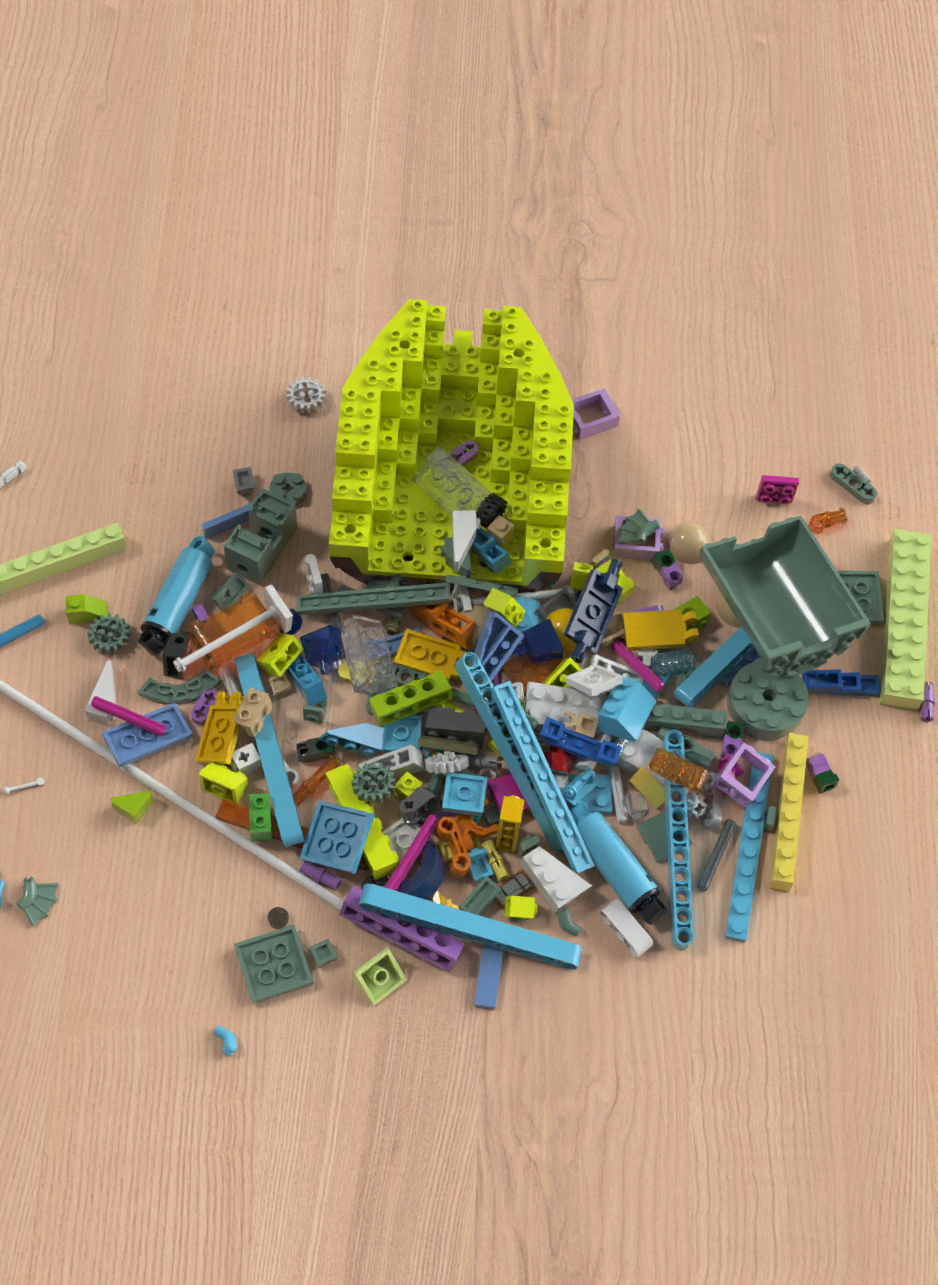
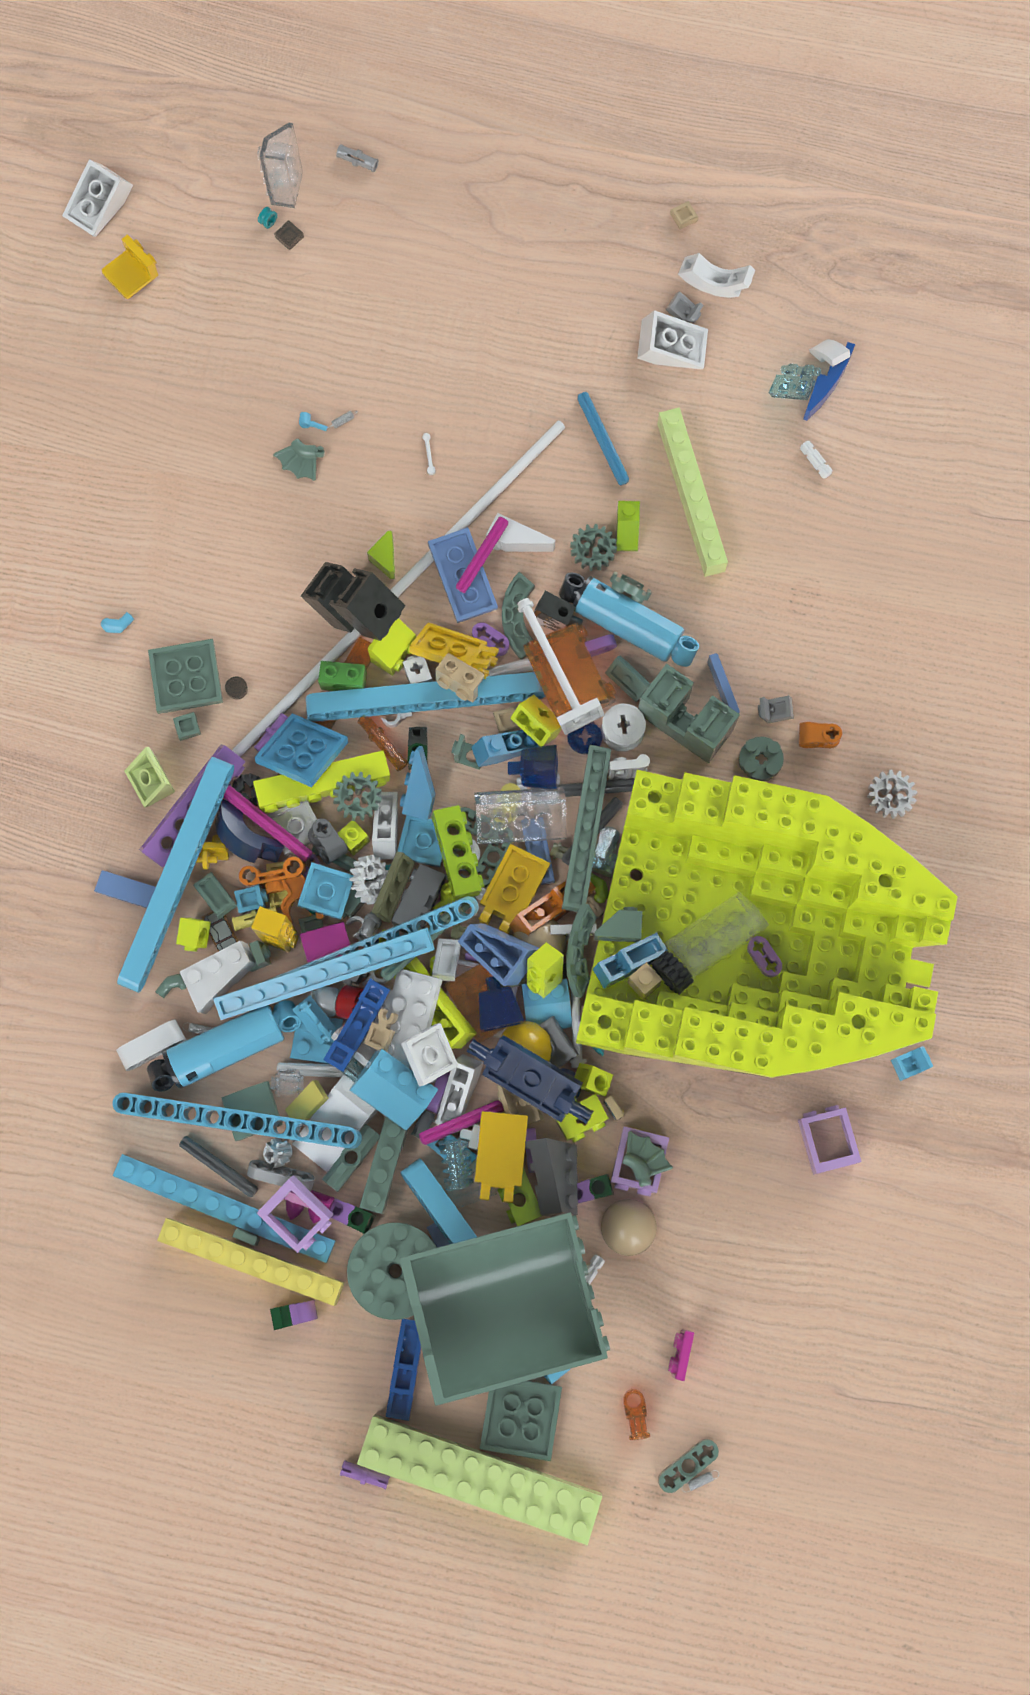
camera: 105 degrees right, 15 degrees up
(146, 598) = (630, 586): none -> sand green plate
(194, 790) = (353, 601): none -> pearl dark grey piece
(262, 447) = (816, 735): none -> orange piece
(281, 582) = (633, 720): none -> white piece
(464, 532) = (639, 931): white slope -> none
(602, 891) = (195, 1028): none -> white piece
(667, 588) = (556, 1176): none -> dark grey wedge
(678, 770) = (303, 1131): clear orange beam -> none

